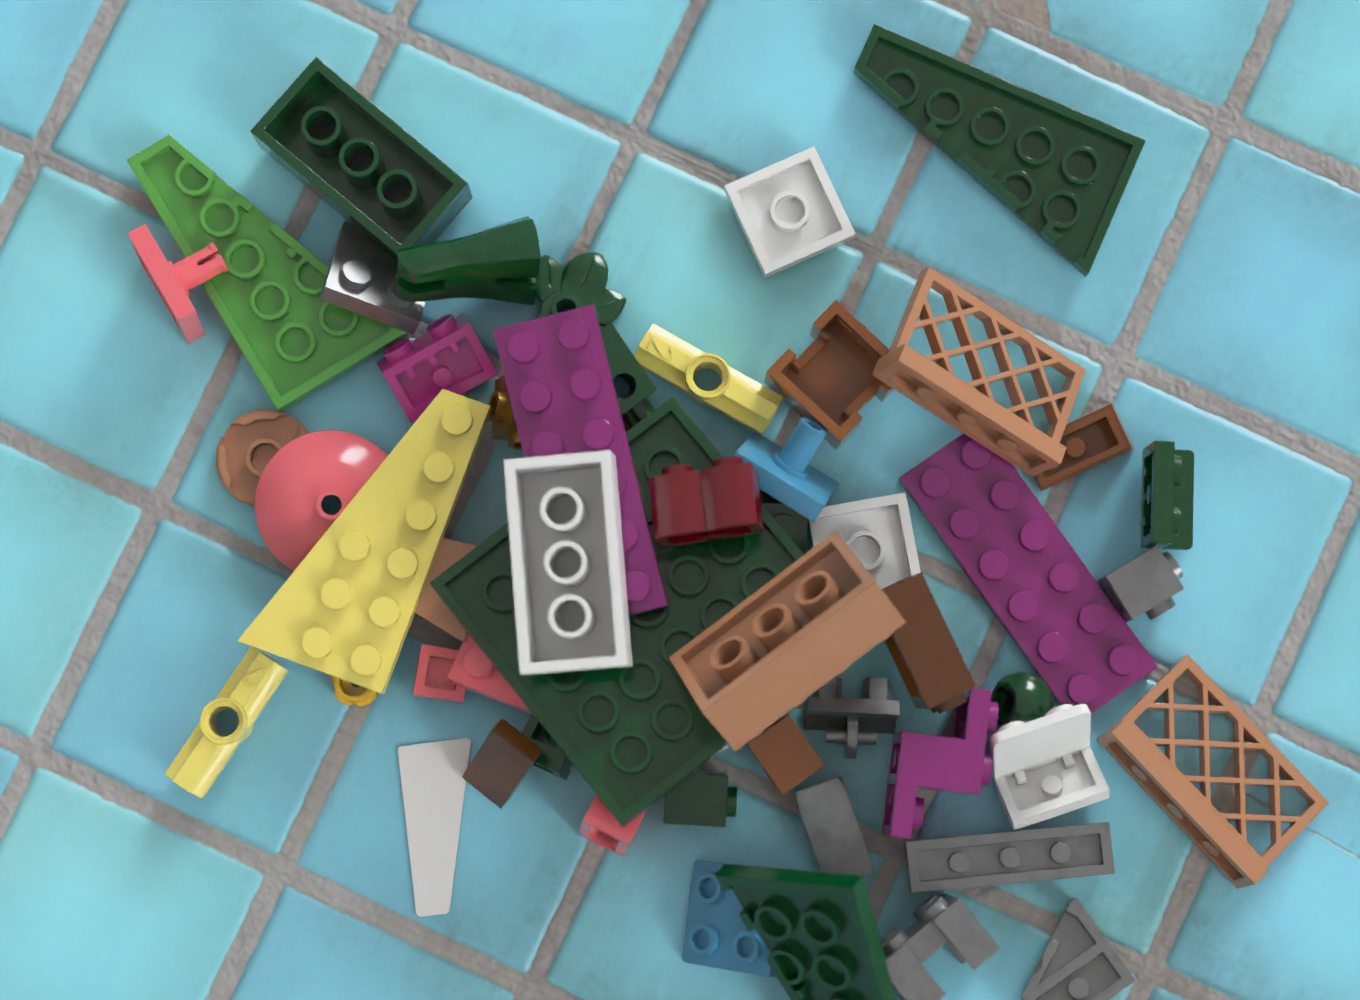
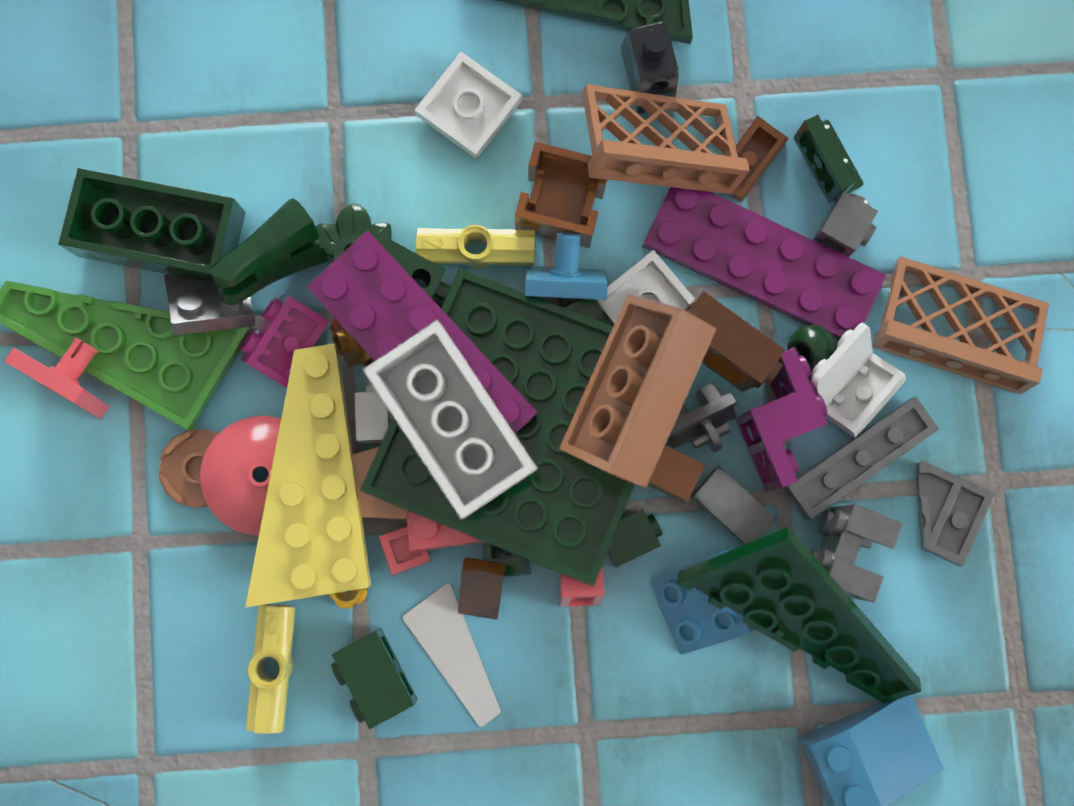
camera: 30 degrees left, 0 degrees up
(330, 796) = (373, 679): none -> dark green brick
(485, 508) = (371, 416): none -> white brick
(706, 502) = (524, 326): dark red brick -> none
(1022, 277) = (650, 60): none -> black torso

